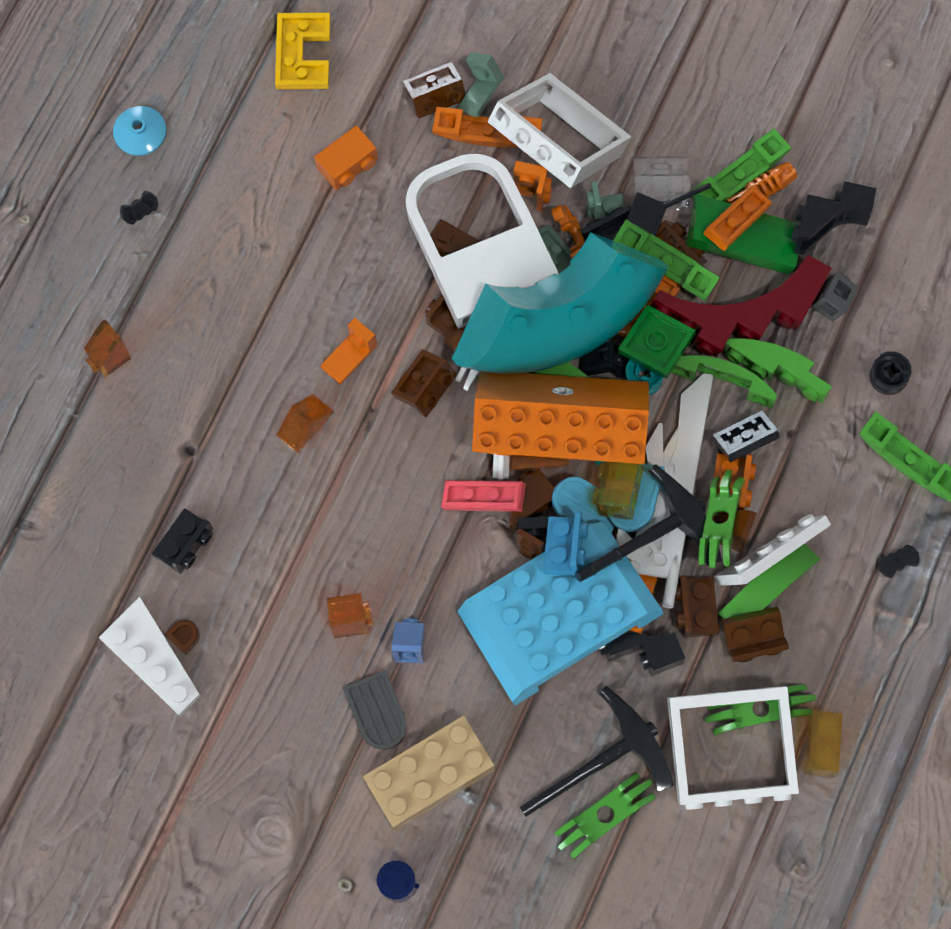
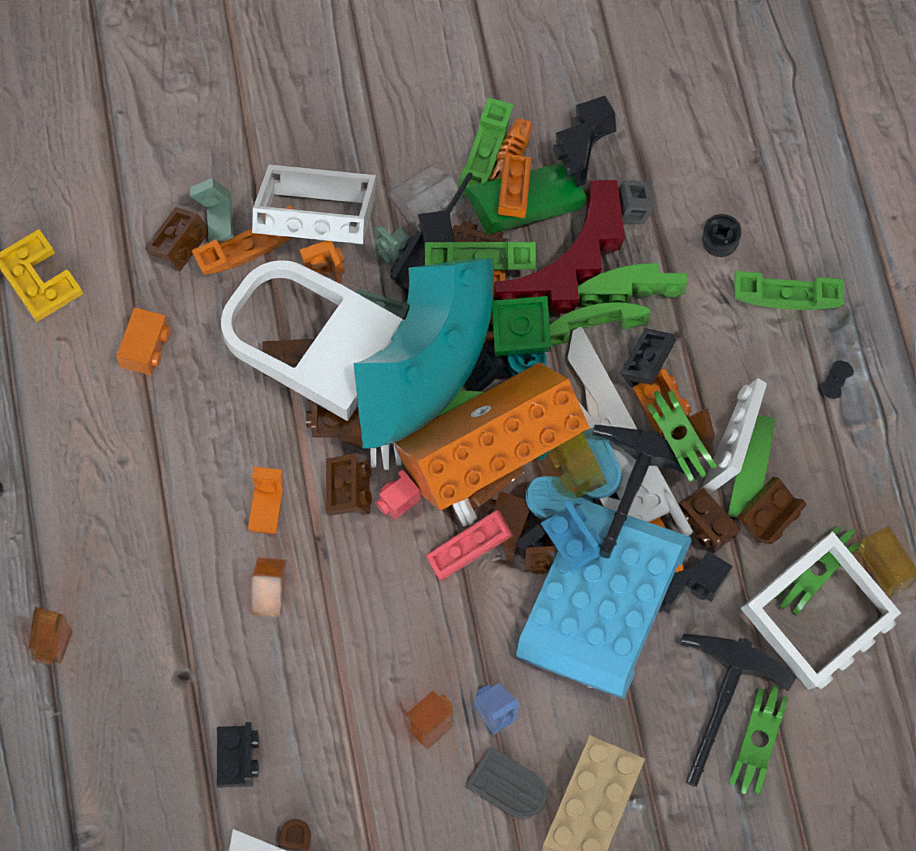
camera: 40 degrees left, 5 degrees down
(456, 417) = (398, 496): none -> coral brick
(569, 223) = (377, 278): orange helmet -> none

